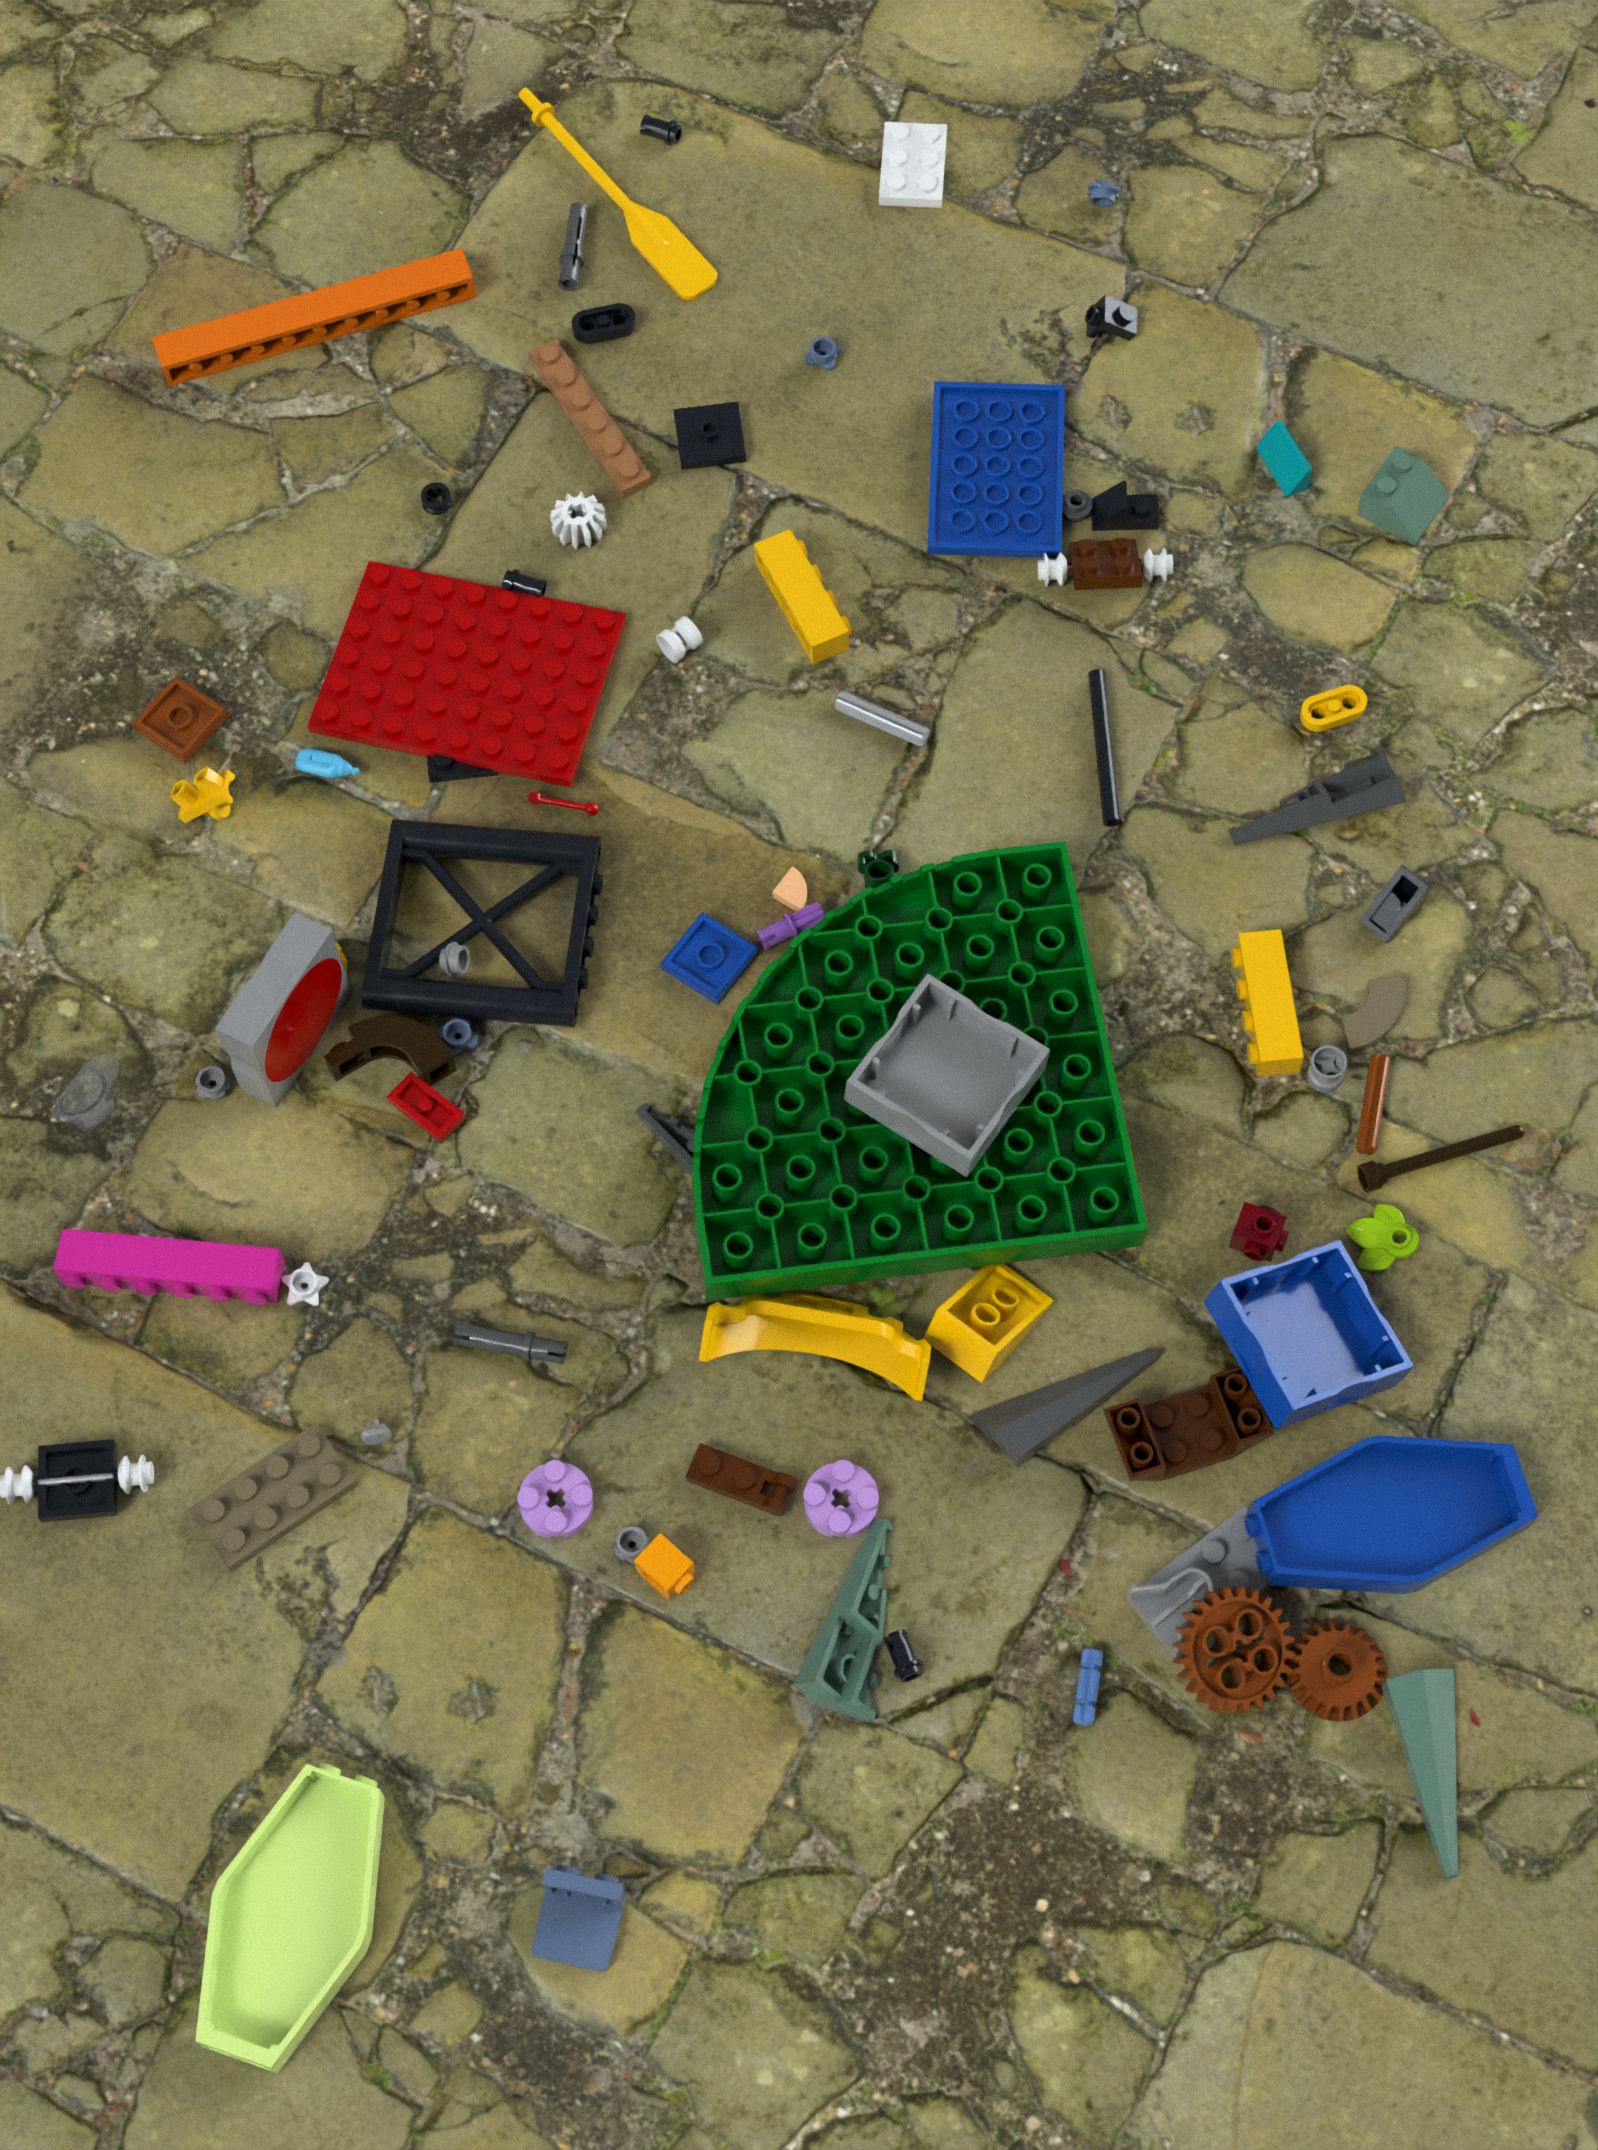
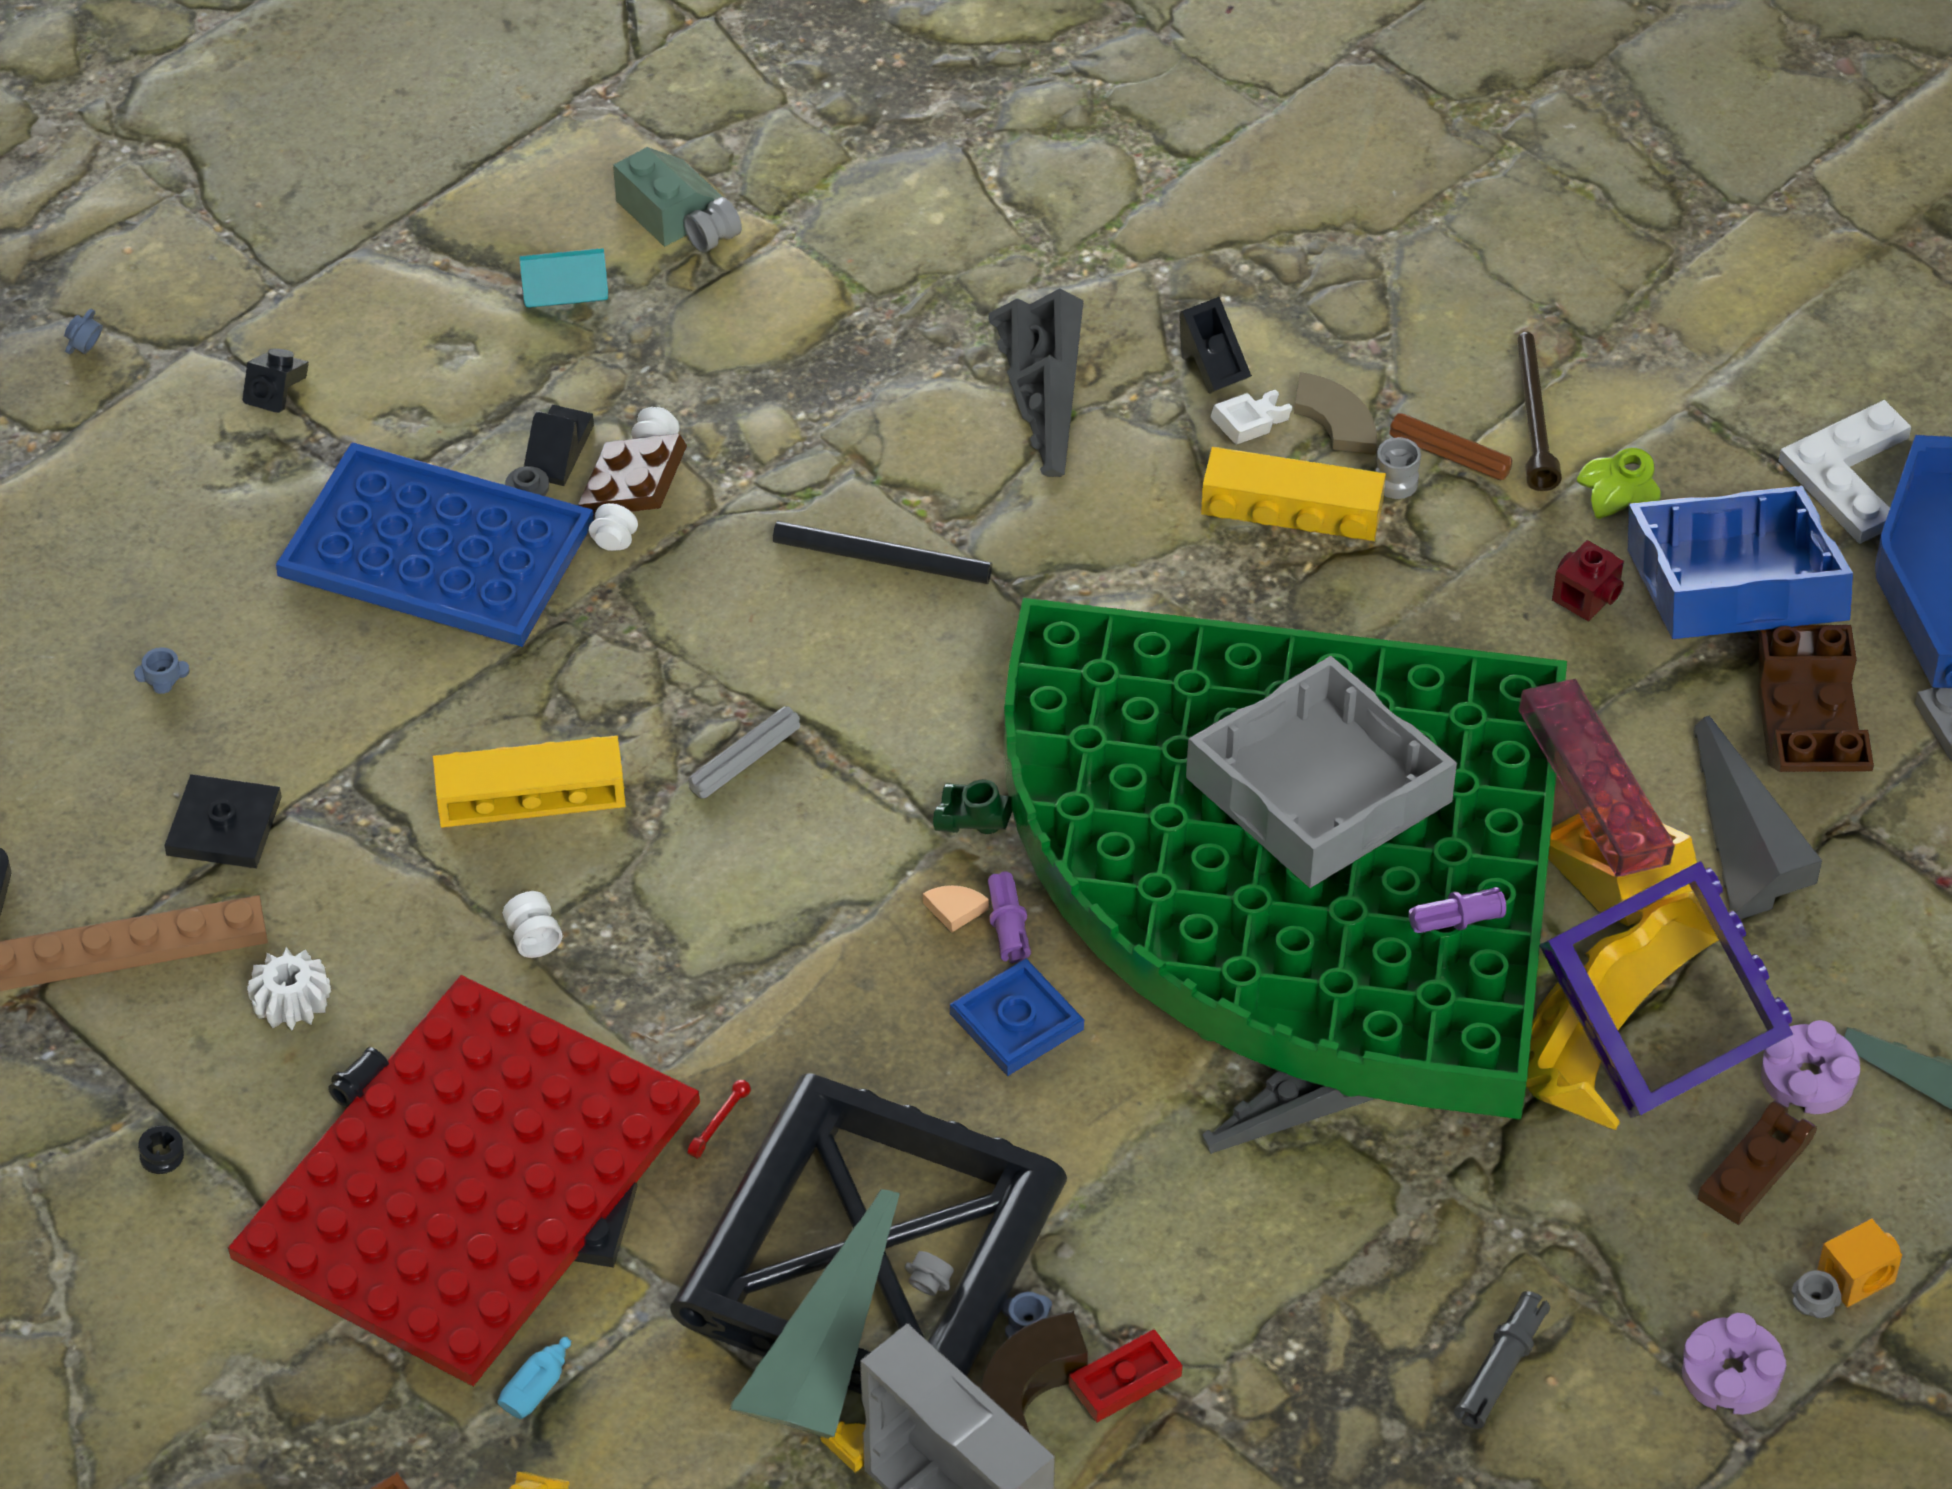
camera: 75 degrees left, 15 degrees down
(368, 908) = (813, 1358): none -> sand green wedge
(792, 1336) = (1601, 1028): none -> dark purple window
(844, 1199) = (1458, 910): none -> medium lavender axle
(1022, 1270) = (1596, 778): none -> clear pink piece
(1331, 709) = (925, 332): yellow plate -> none
(1337, 949) = (1247, 419): none -> white plate
(1381, 534) = (715, 223): none -> light grey wheel
(1482, 1384) = (1824, 463): none -> white plate

